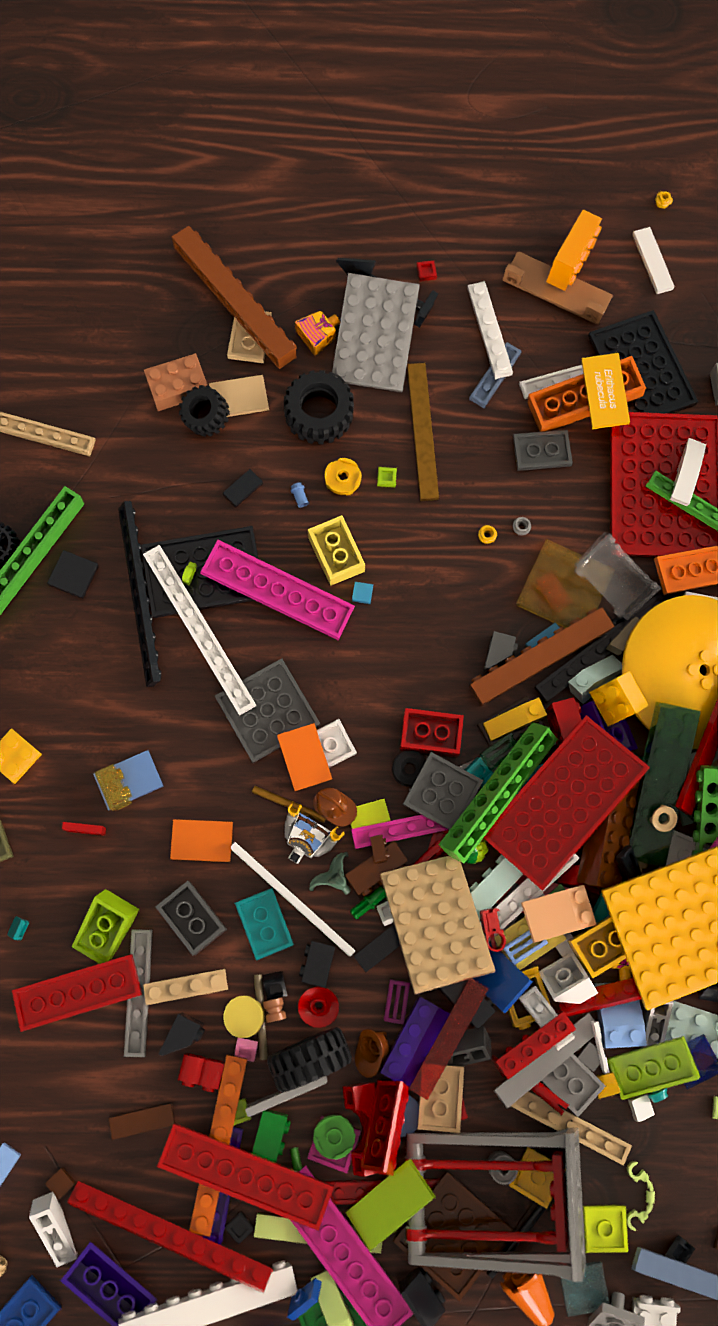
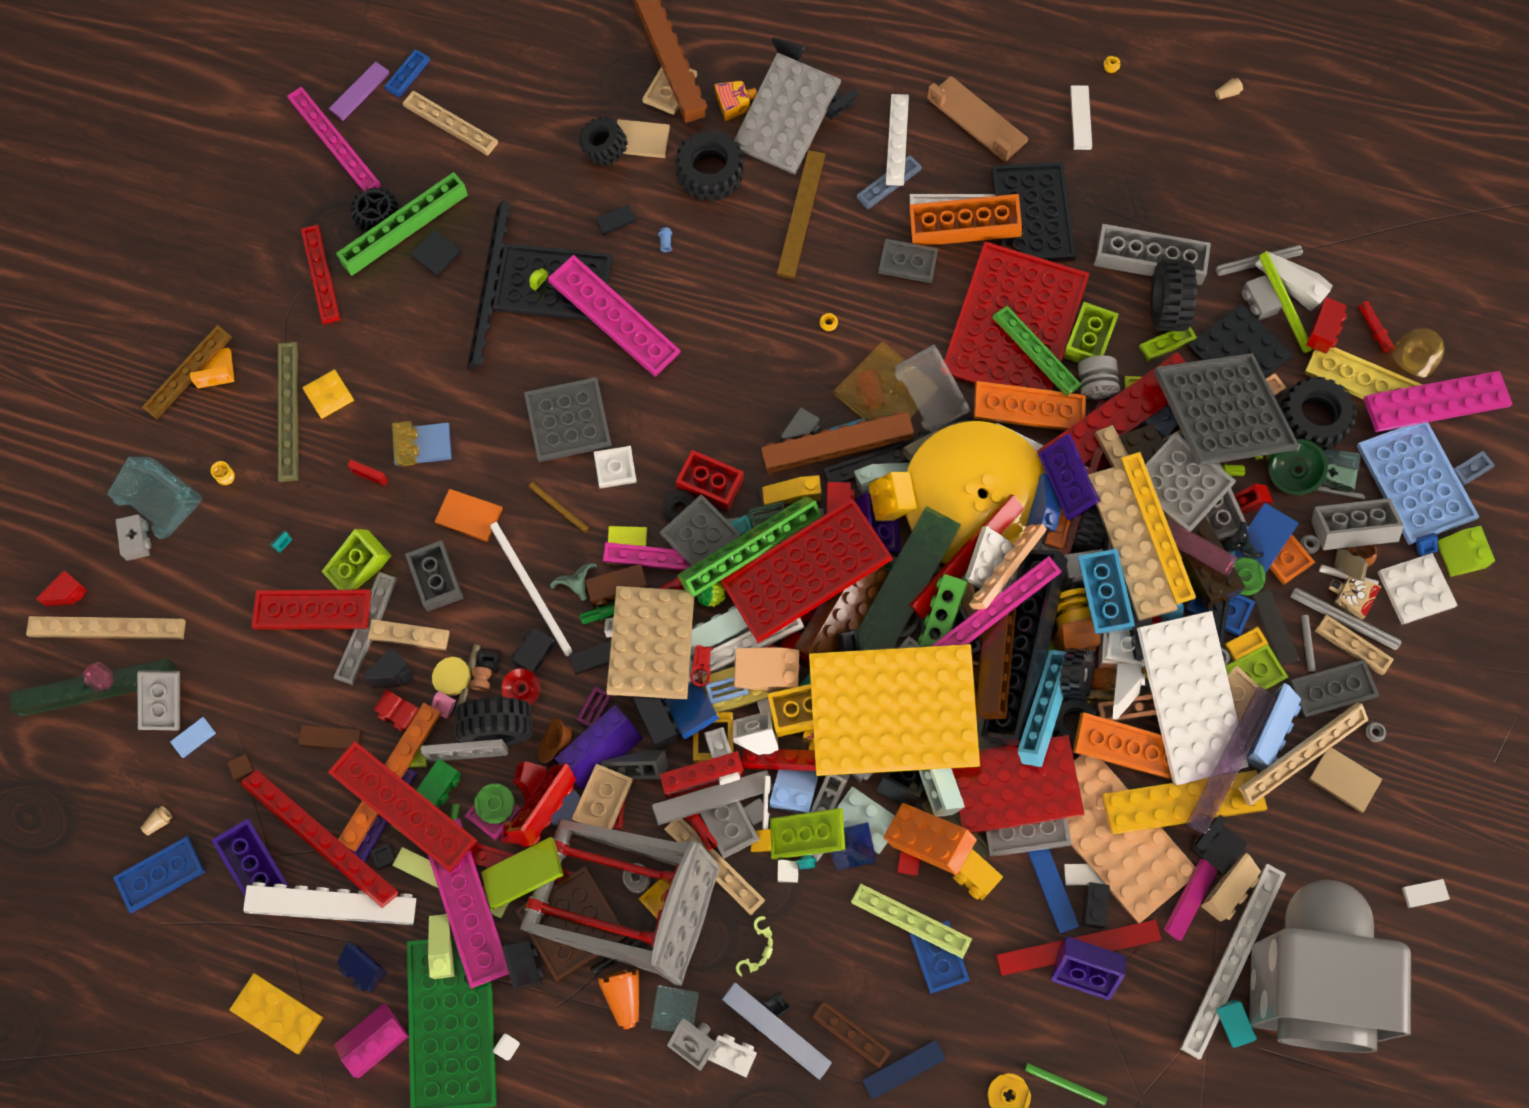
camera: 25 degrees right, 5 degrees down
(53, 1229) = (220, 800): white slope -> none
(173, 379) = (583, 105): nougat brick -> none
(199, 630) = (530, 331): white plate -> none
(264, 924) = (498, 604): teal tile -> none
(304, 757) = (585, 468): orange tile -> none
(304, 1299) = (416, 927): blue plate -> none
(307, 836) = (563, 537): torso -> none
(335, 807) = (599, 520): dark orange piece -> none
(336, 550) = (680, 296): light yellow brick -> none
(345, 486) = (708, 243): yellow plate -> none
(362, 592) = (692, 342): dark azure tile -> none
(378, 847) = (622, 566): reddish brown piece -> none
(386, 477) = (752, 246): lime tile -> none
(426, 270) = (857, 71): red tile -> none
(448, 1038) = (625, 744): clear red tile -> none
(524, 521) = (864, 319): light grey plate -> none
(574, 250) = (1001, 86): light orange brick -> none
(605, 391) = (981, 219): yellow tile -> none
(605, 1228) = (714, 966): neon yellow tile -> none
(669, 824) = (894, 621): tan piece -> none
(688, 472) = (1036, 314): white slope -> none

